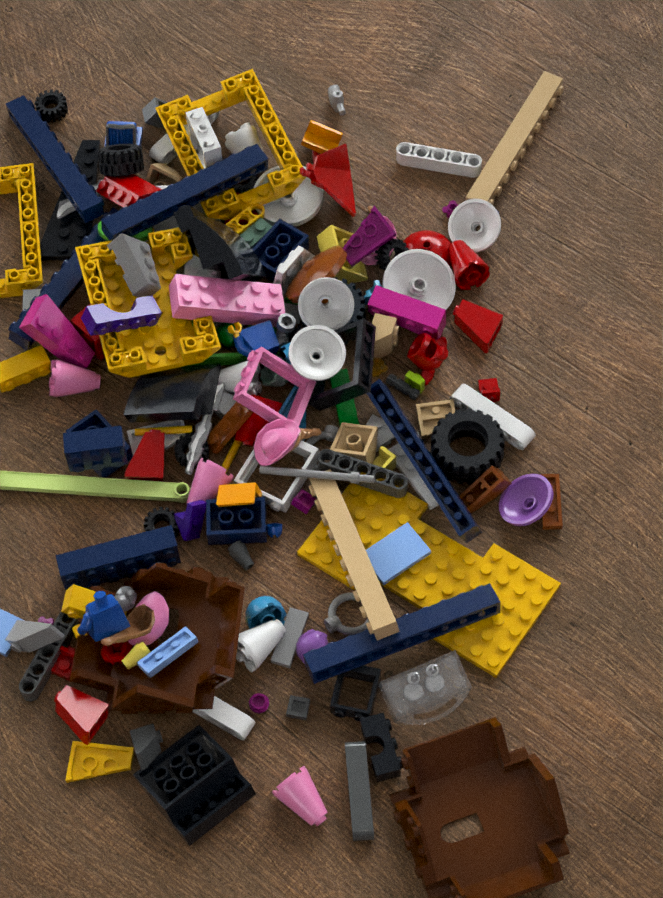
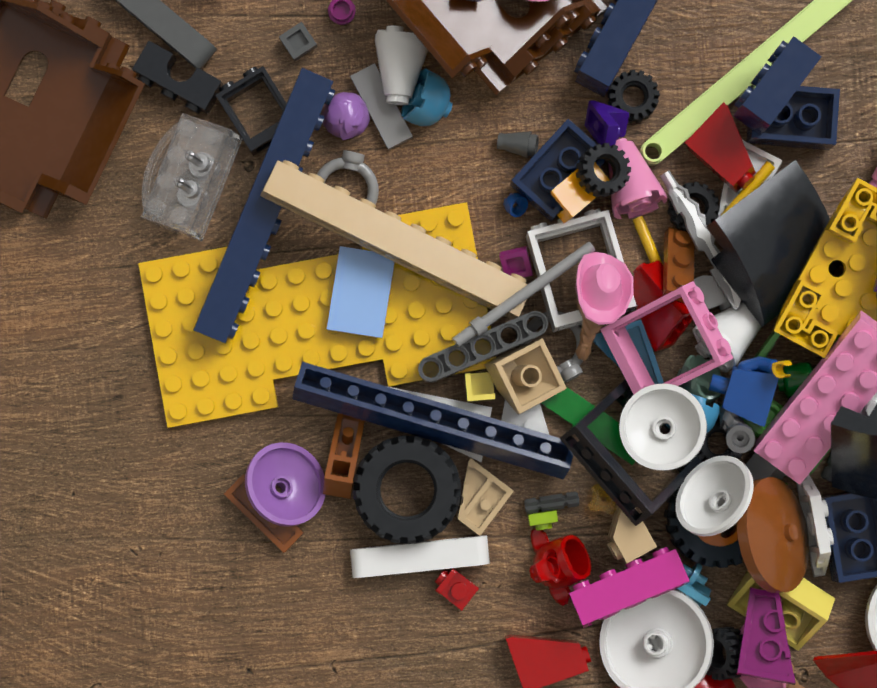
camera: 130 degrees right, 25 degrees up
(214, 481) = (617, 162): none -> black tyre

